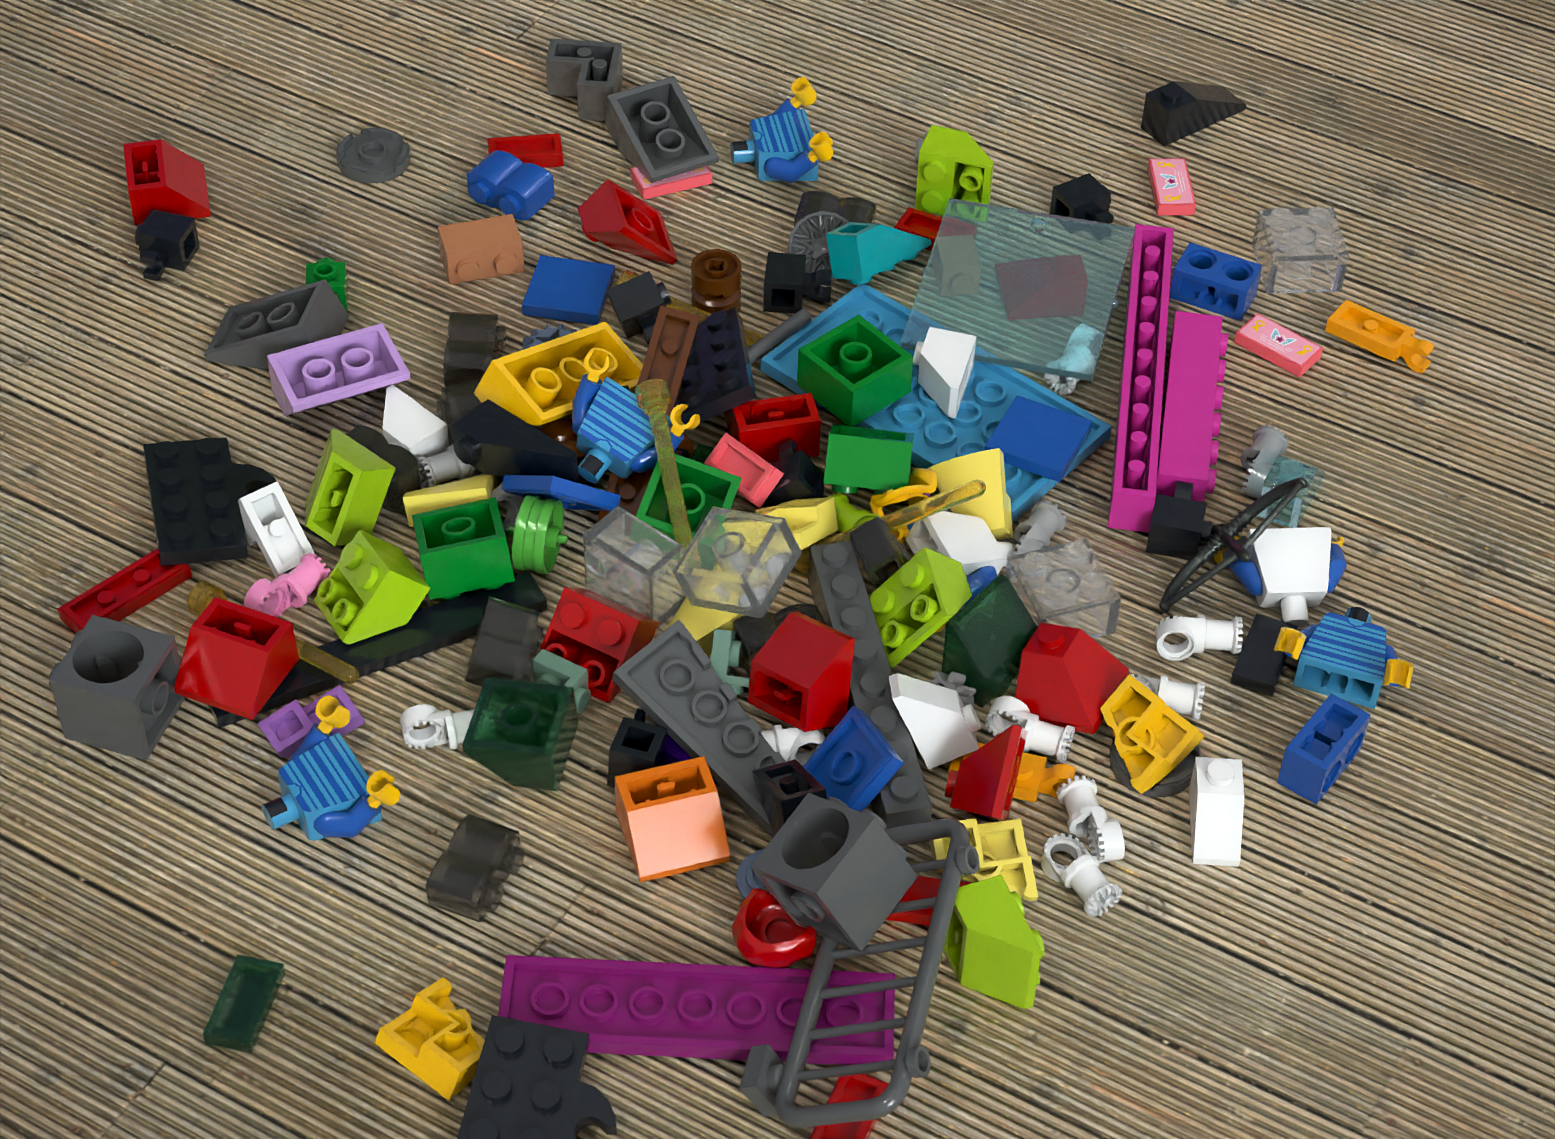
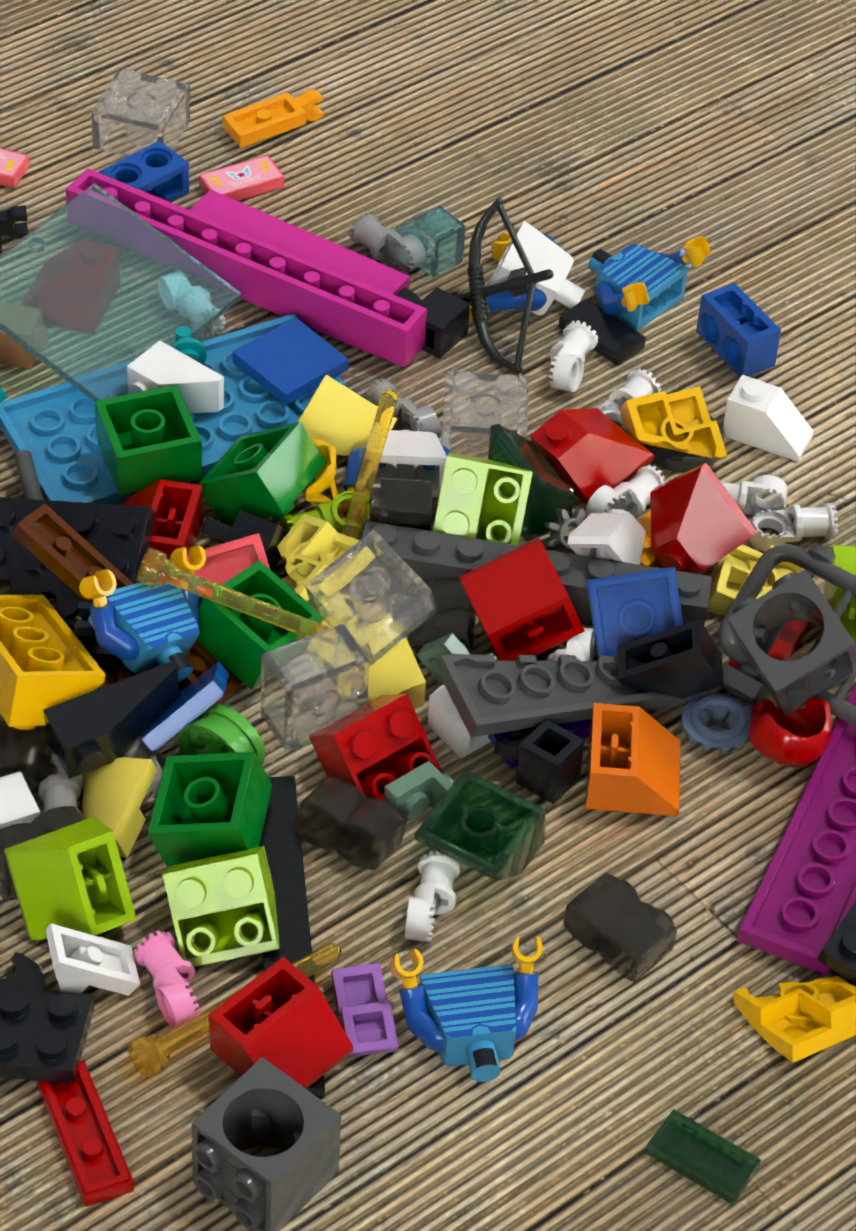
camera: 70 degrees left, 0 degrees up
(989, 363) = (189, 346): none -> teal plate

